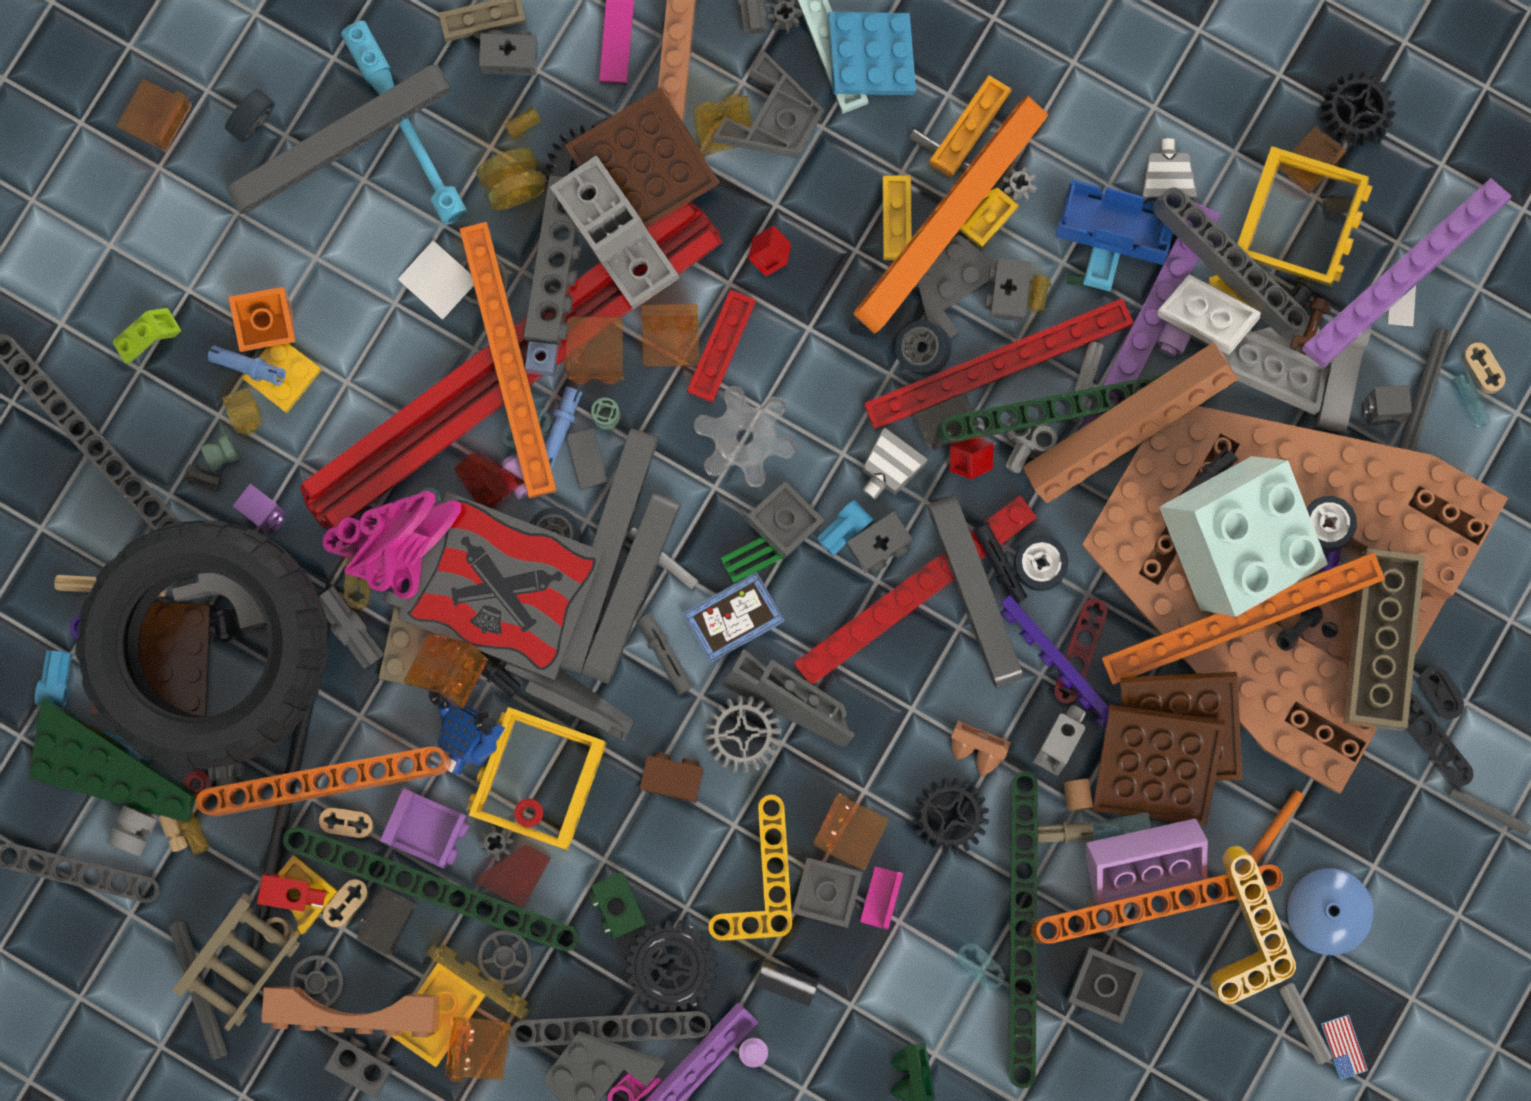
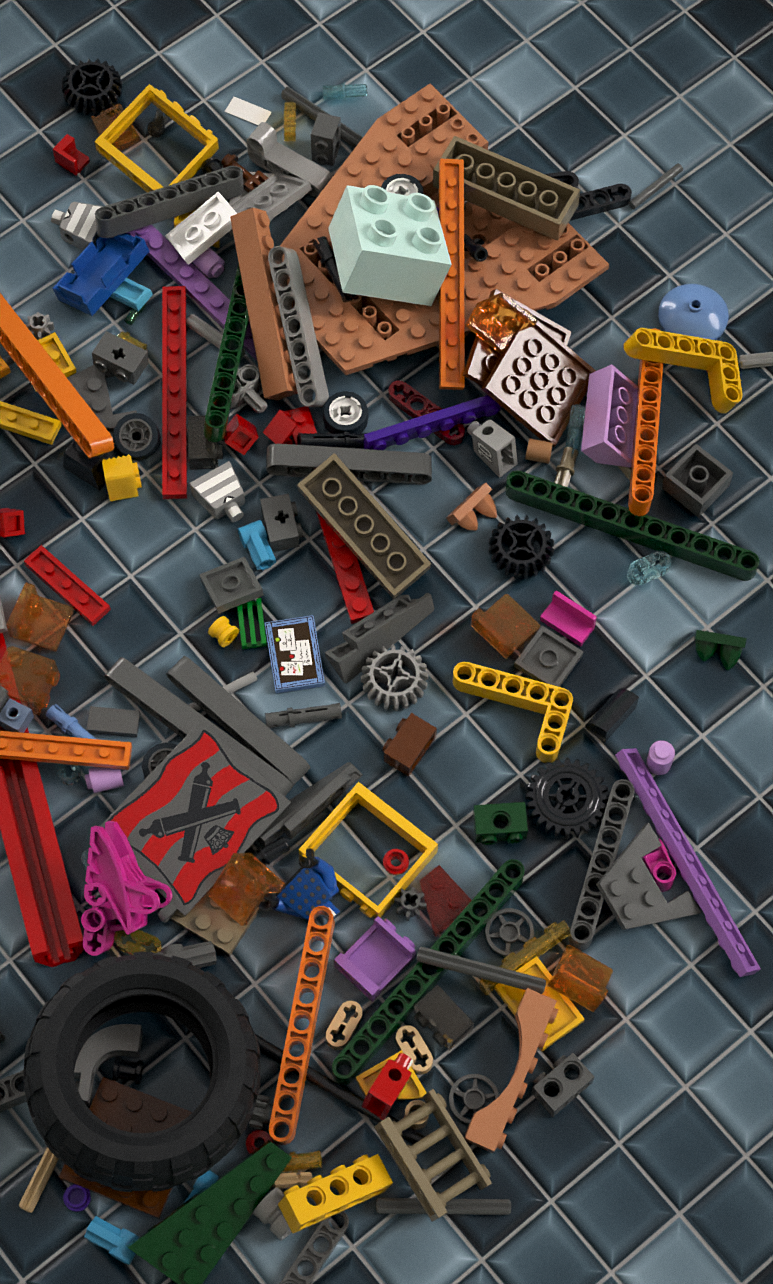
camera: 75 degrees left, 15 degrees down
(195, 912) = (301, 1214): none -> yellow brick
(260, 510) = (36, 993): medium lavender brick -> none
(441, 943) = (480, 970): none -> dark grey axle
(487, 480) = (95, 802): clear red wing -> none
(609, 417) = (83, 697): sand green wheel -> none
(728, 532) = (223, 631): none -> yellow wheel
(741, 417) = (143, 578): clear plate -> none
(862, 352) = (121, 477): none -> yellow brick
(897, 637) = (364, 526): none -> dark tan brick
(989, 500) = (281, 428): none -> red panel
(1113, 471) = (290, 318): none -> light grey beam
(1191, 693) = (498, 321): none -> clear orange bracket
(1256, 125) = (68, 156): none -> red panel
(1276, 825) = (609, 321): orange bar -> none
(1403, 353) = (290, 121): none -> clear yellow beam
(1406, 273) = (233, 91): medium lavender plate -> none
(1489, 364) = (323, 76): tan beam -> none

